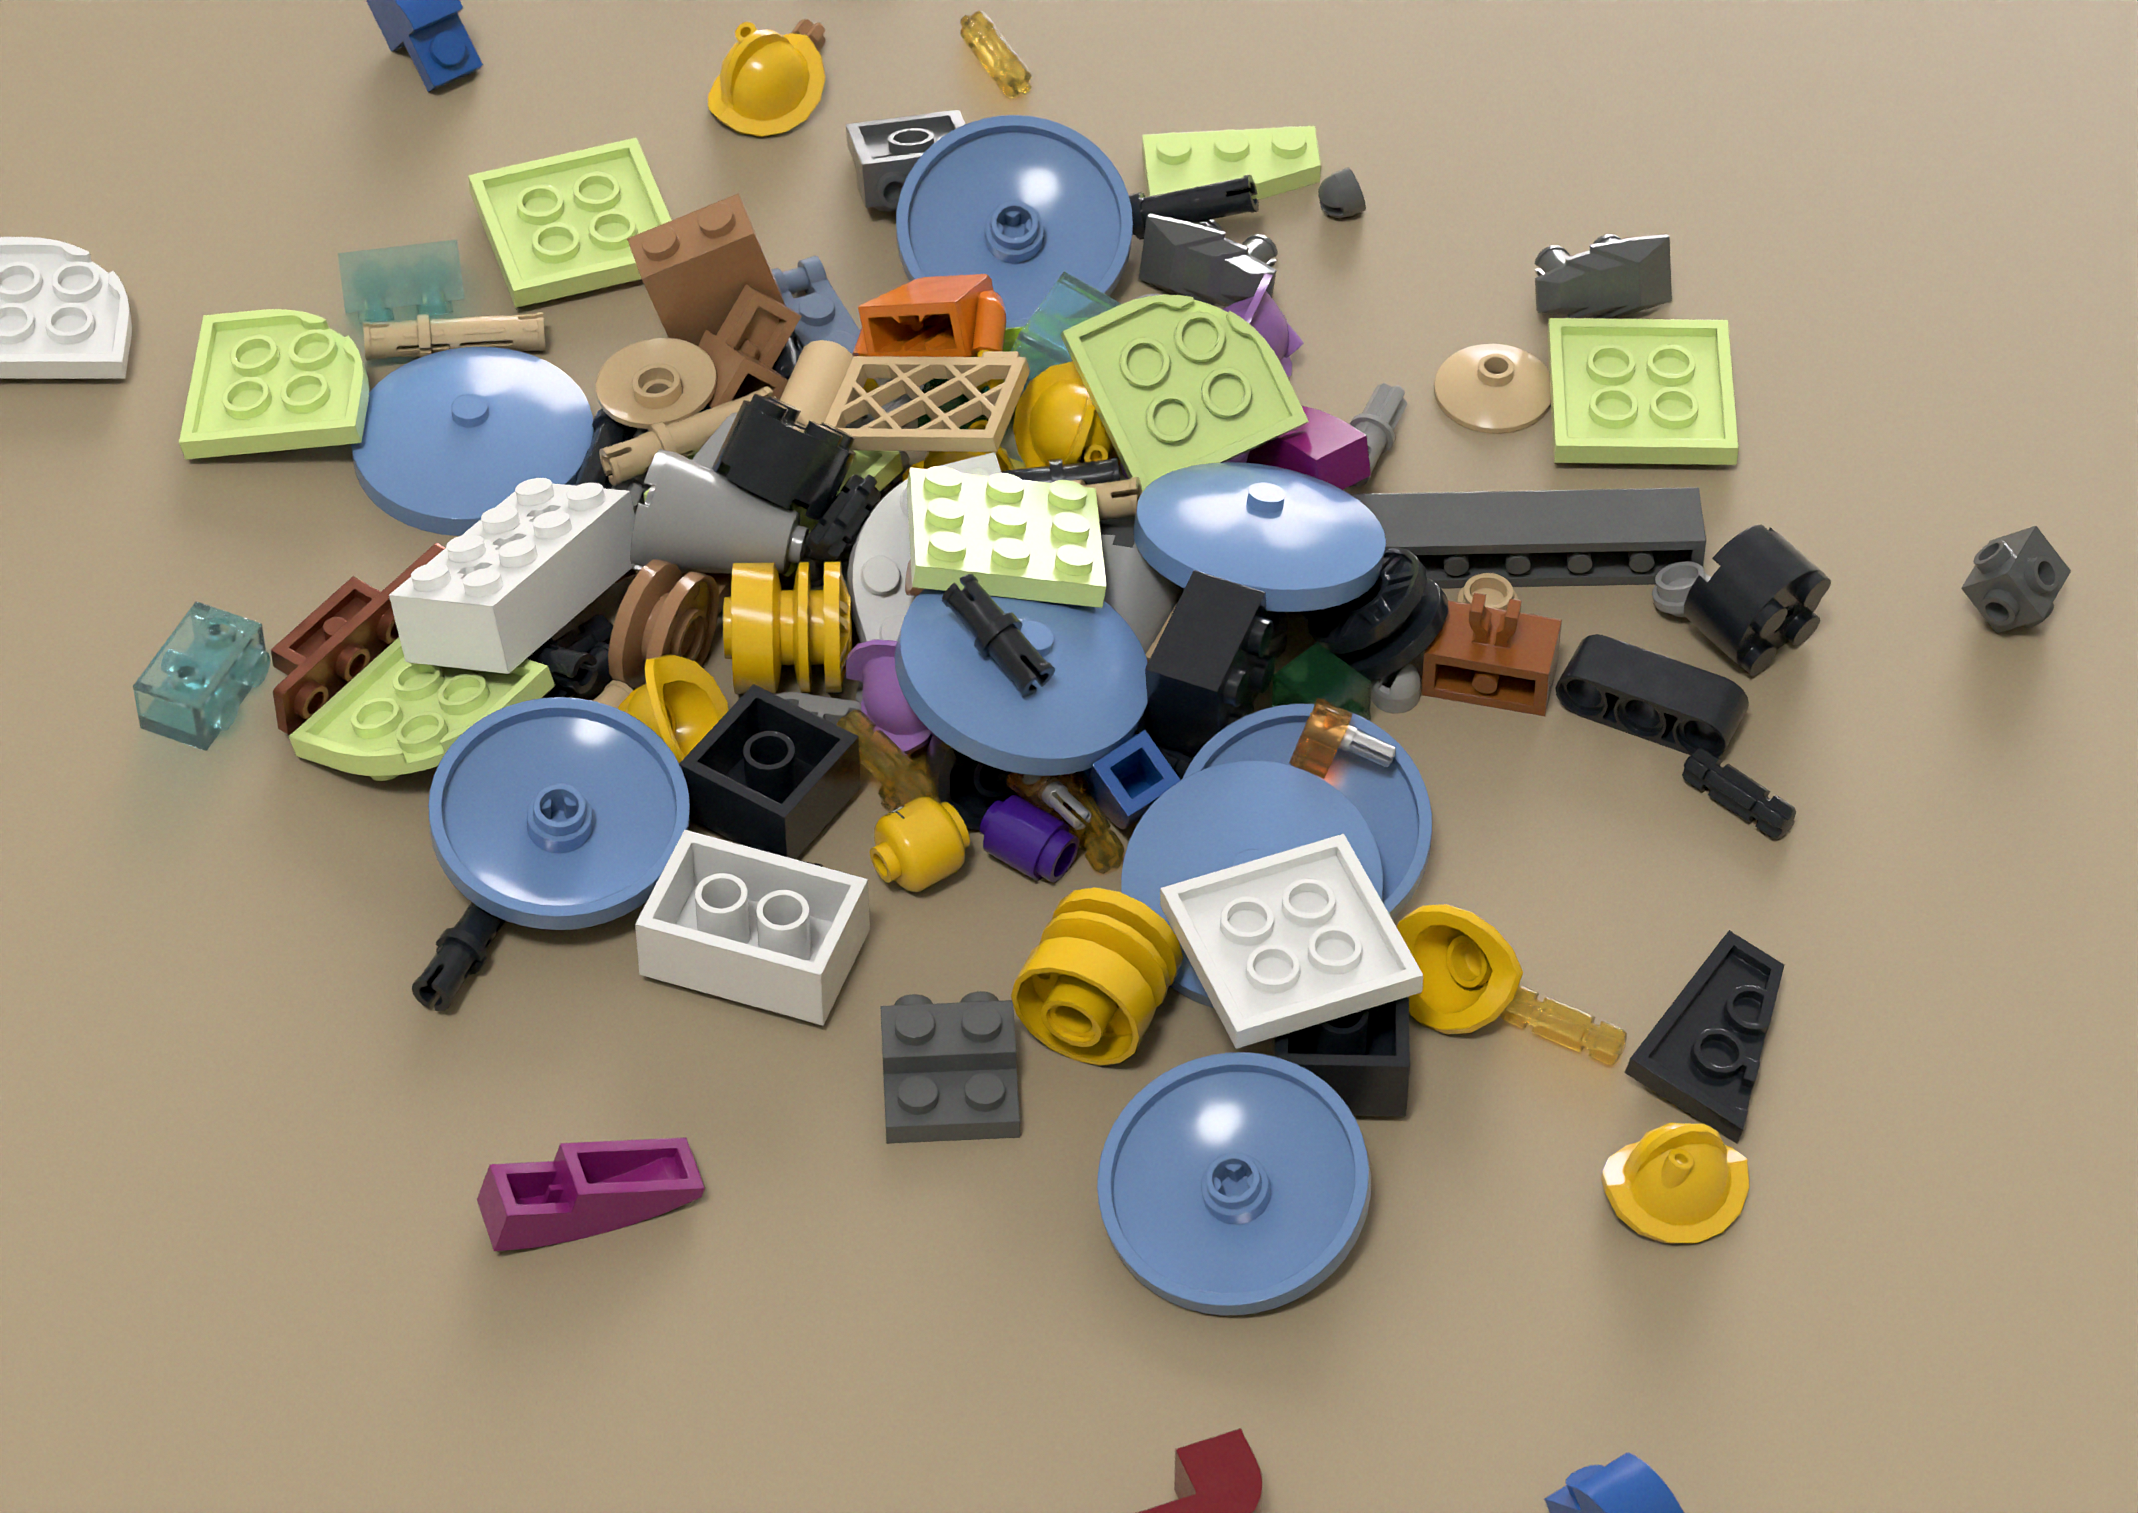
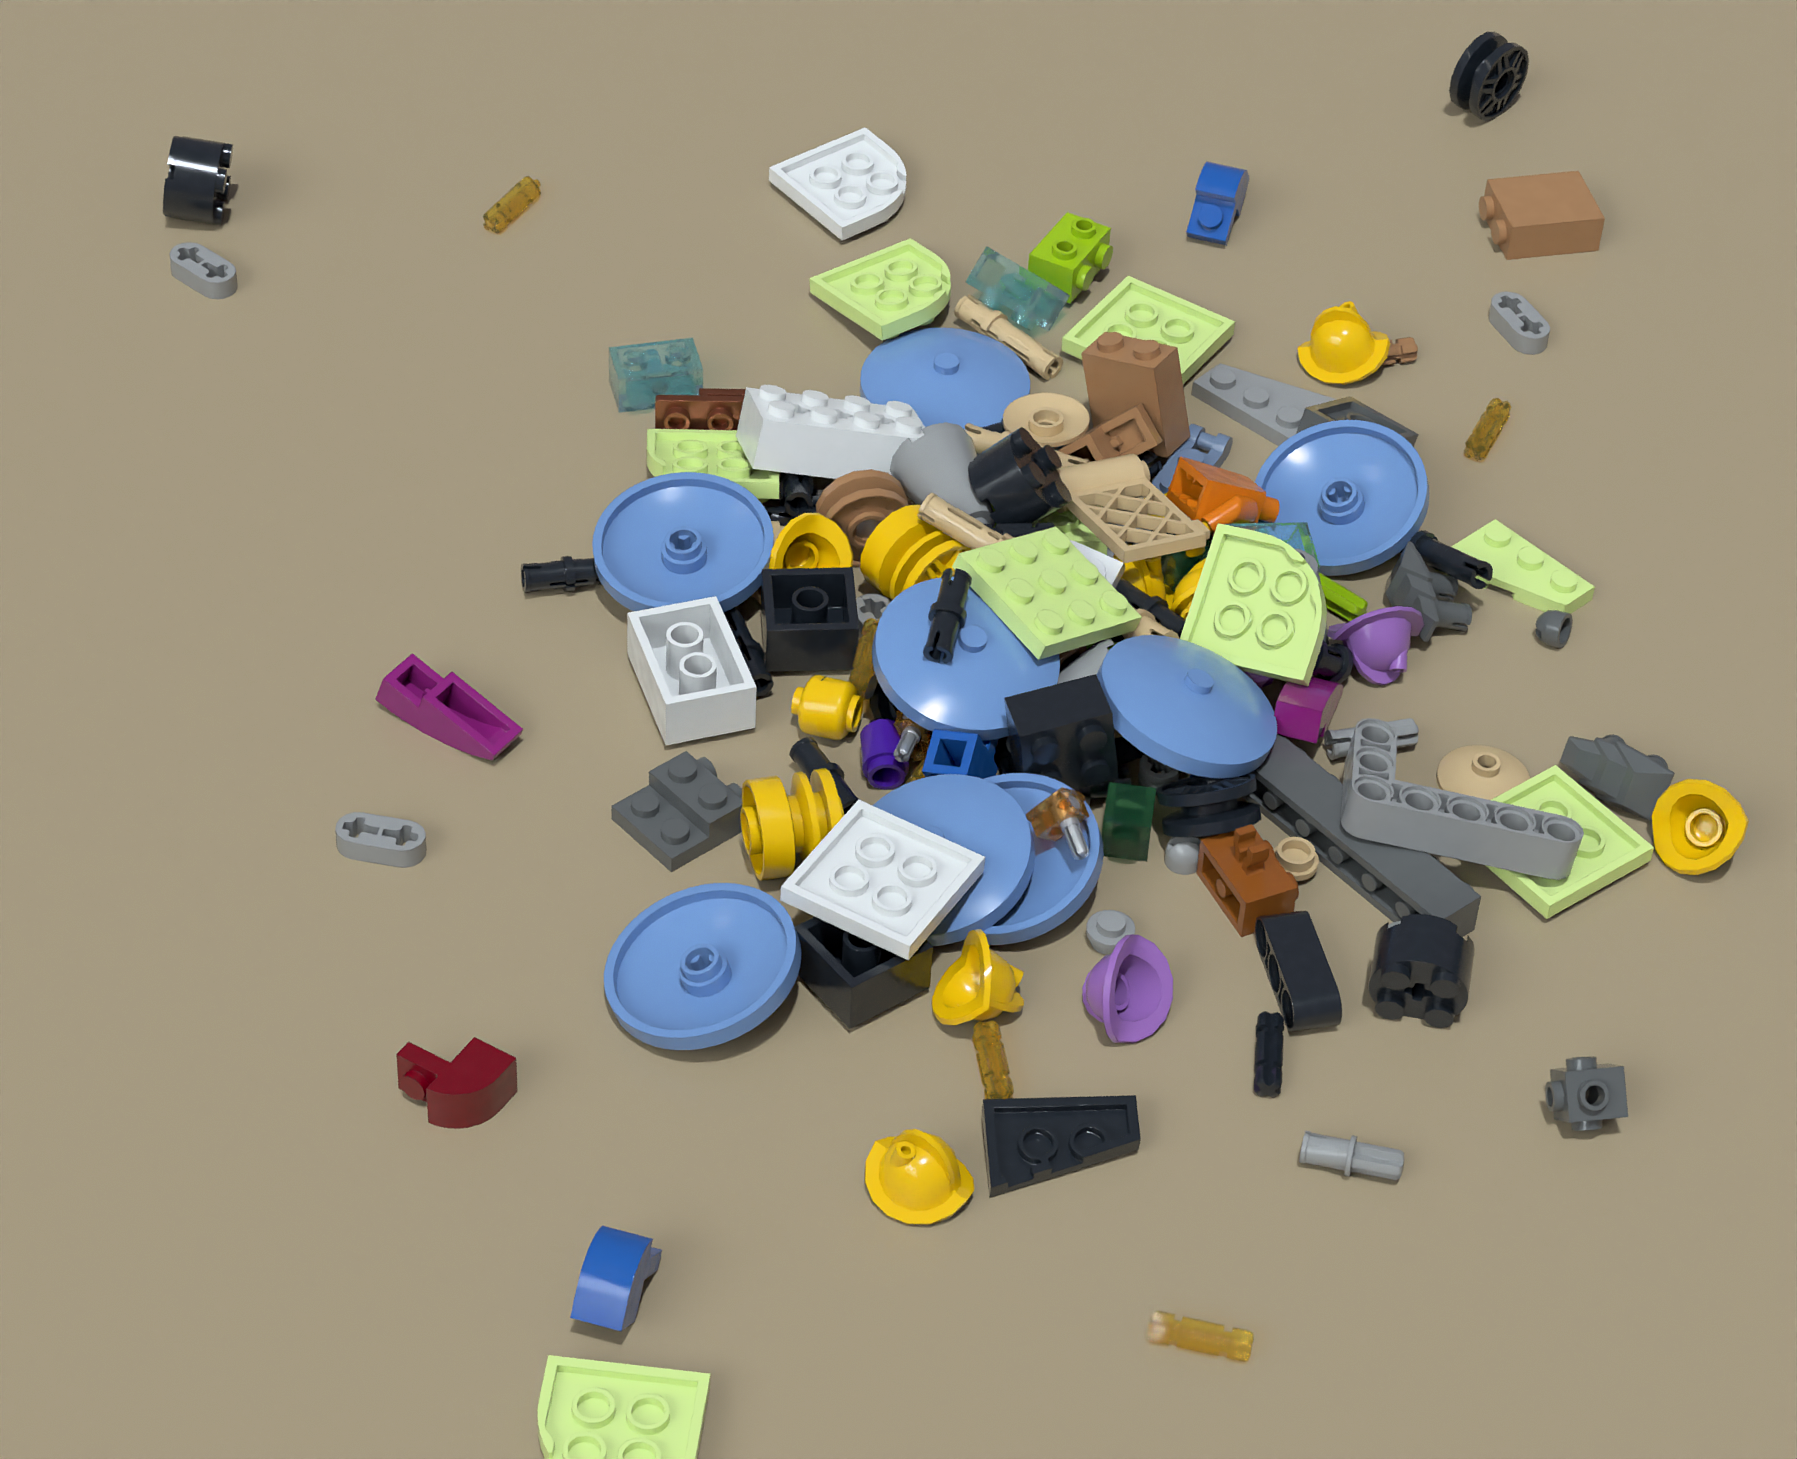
camera: 50 degrees right, 5 degrees down
(390, 196) = (1072, 254): none -> lime brick
(741, 1378) = (380, 839): none -> light grey beam
(793, 194) = (1256, 401): none -> light grey wing
(877, 539) = (958, 523): none -> tan pin
(1002, 911) = (810, 757): none -> black pin
(1458, 813) = (1107, 929): none -> light grey plate
(1567, 850) = (1130, 990): none -> medium lavender helmet
(1571, 459) = (1447, 821): none -> light grey beam
(1741, 269) = (1697, 826): none -> yellow helmet
(1933, 815) = (1351, 1156): none -> light grey axle
(2072, 1081) = (1200, 1336): none -> clear yellow axle

